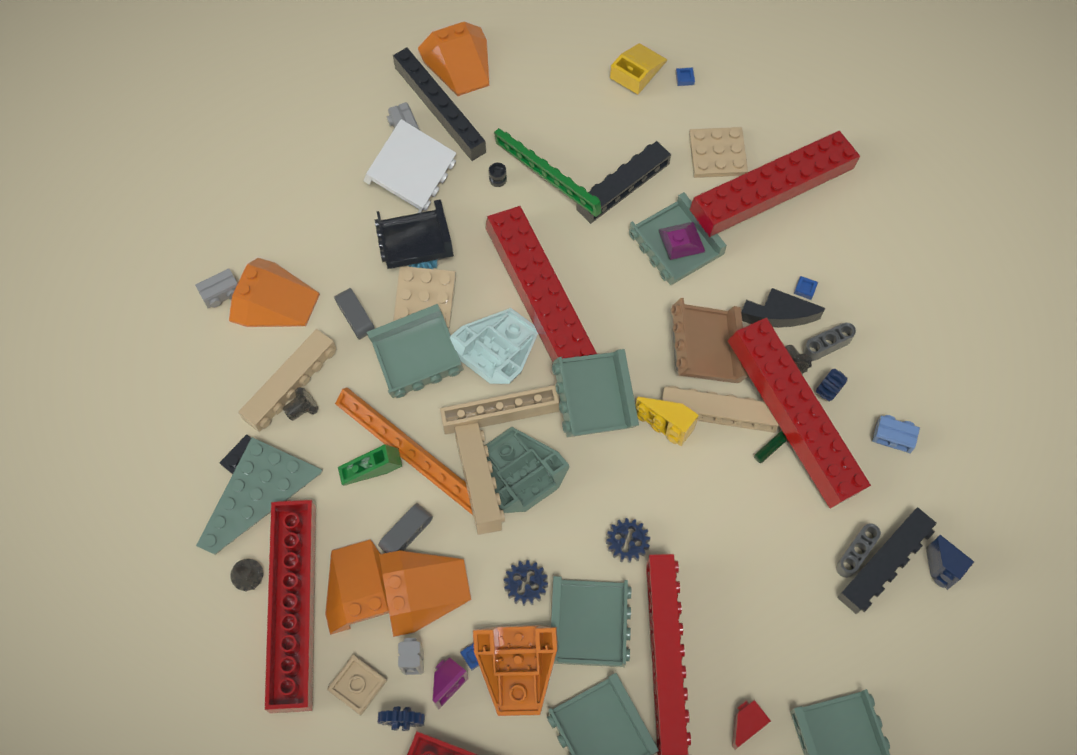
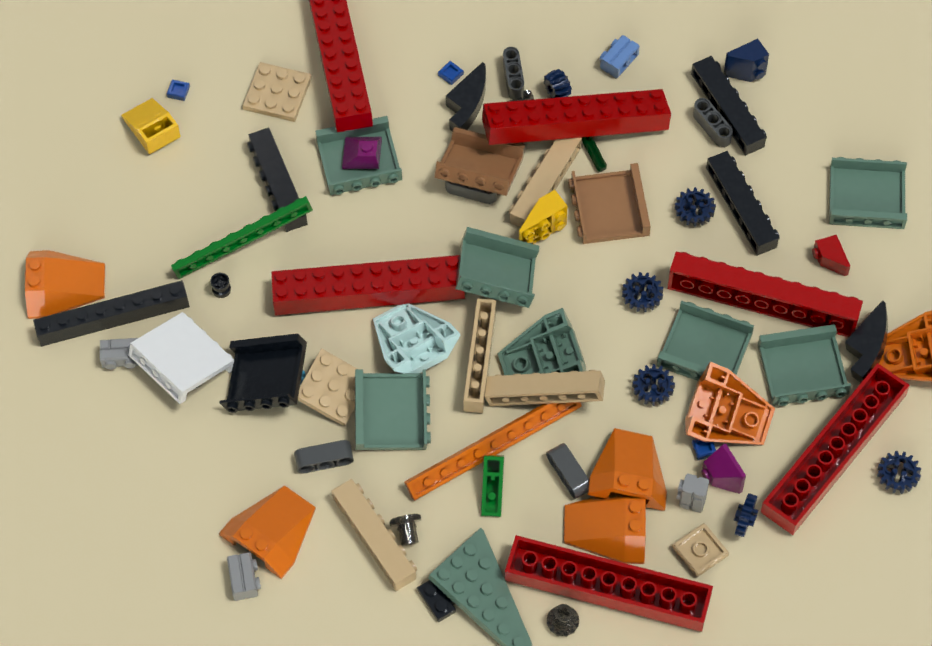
camera: 70 degrees left, 5 degrees down
(716, 478) = (610, 205): none -> medium nougat panel
(760, 563) = (685, 201): none -> dark blue gear
(773, 609) = (742, 203): none -> black brick

